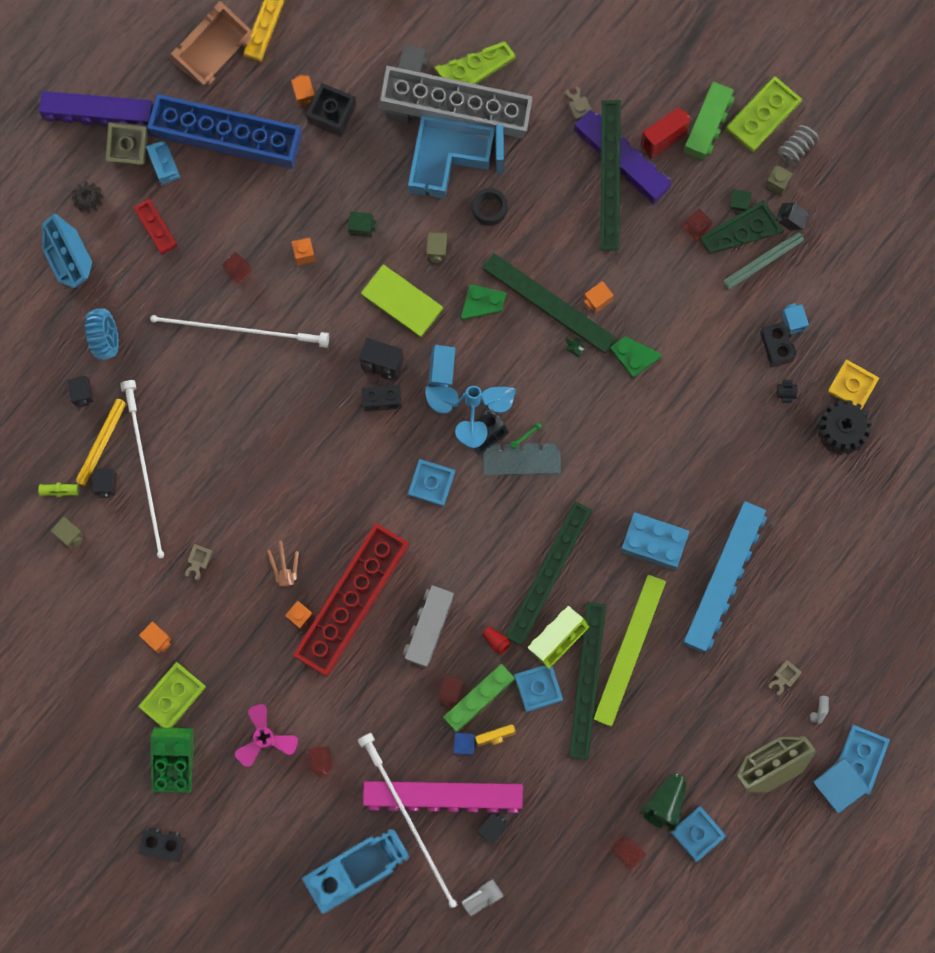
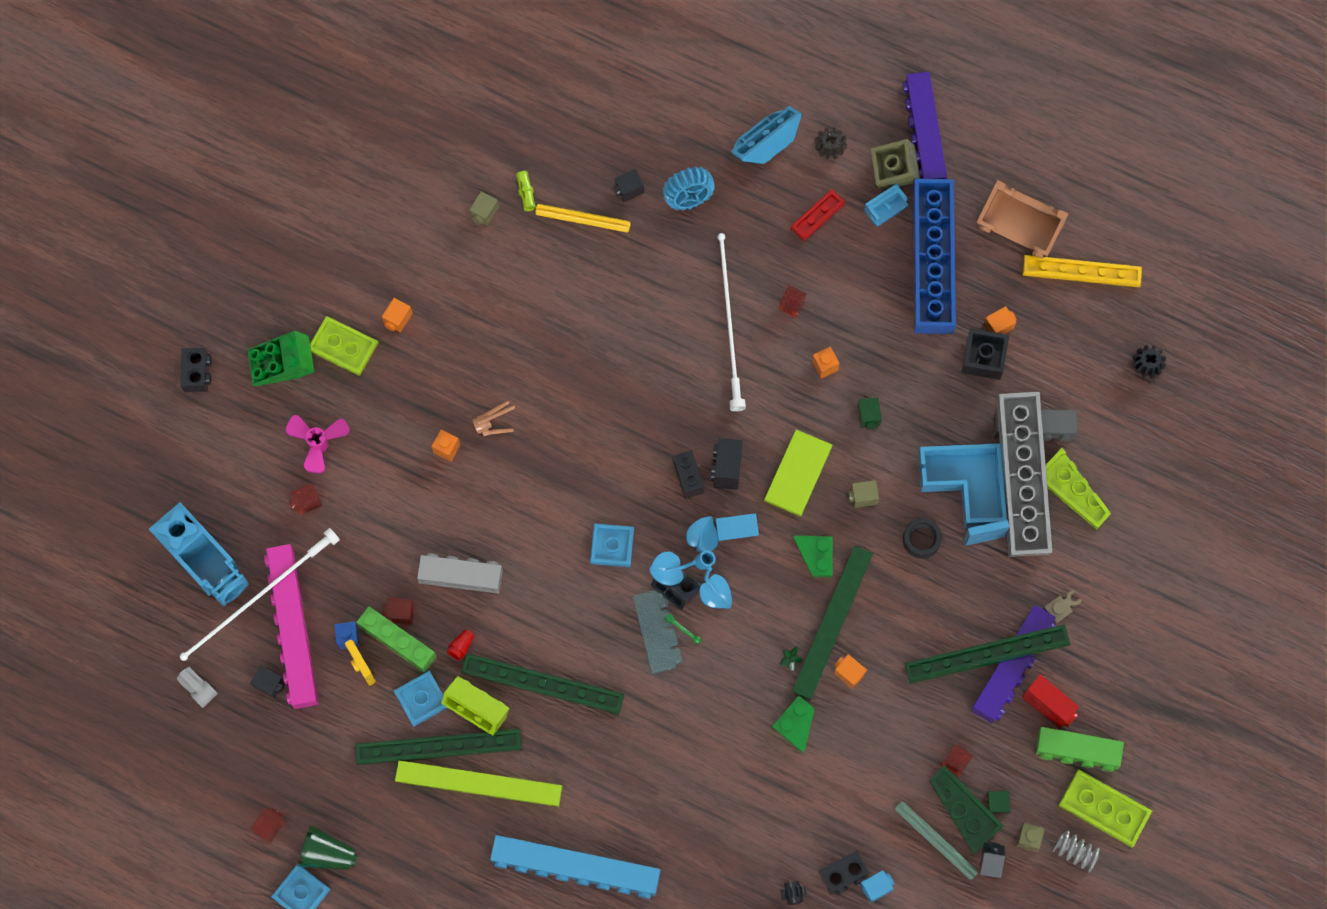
camera: 75 degrees right, 5 degrees down
(104, 482) = (541, 230): black brick -> none
(128, 387) = (643, 229): white piece -> none
(199, 559) = (484, 338): dark tan plate -> none
(351, 600) = (471, 491): red brick -> none
(655, 541) = (597, 784): dark azure brick -> none

